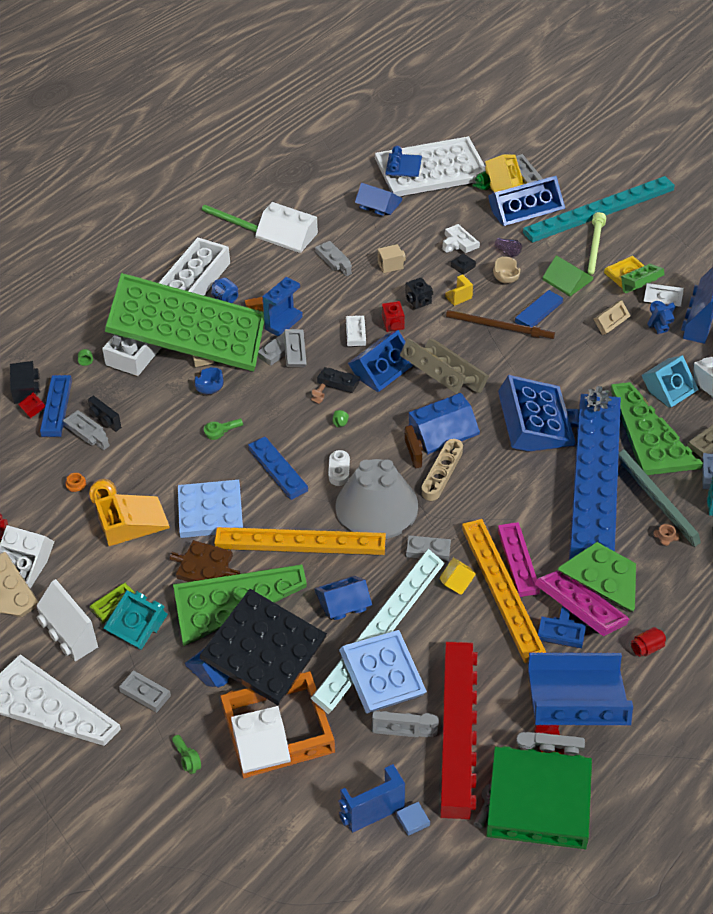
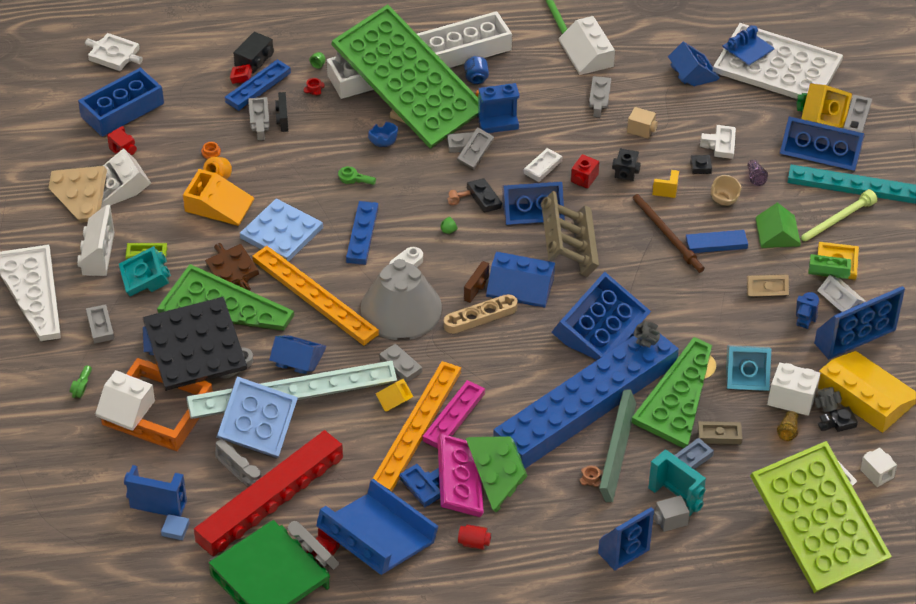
camera: 40 degrees right, 0 degrees up
(105, 379) = (314, 86): none -> red plate

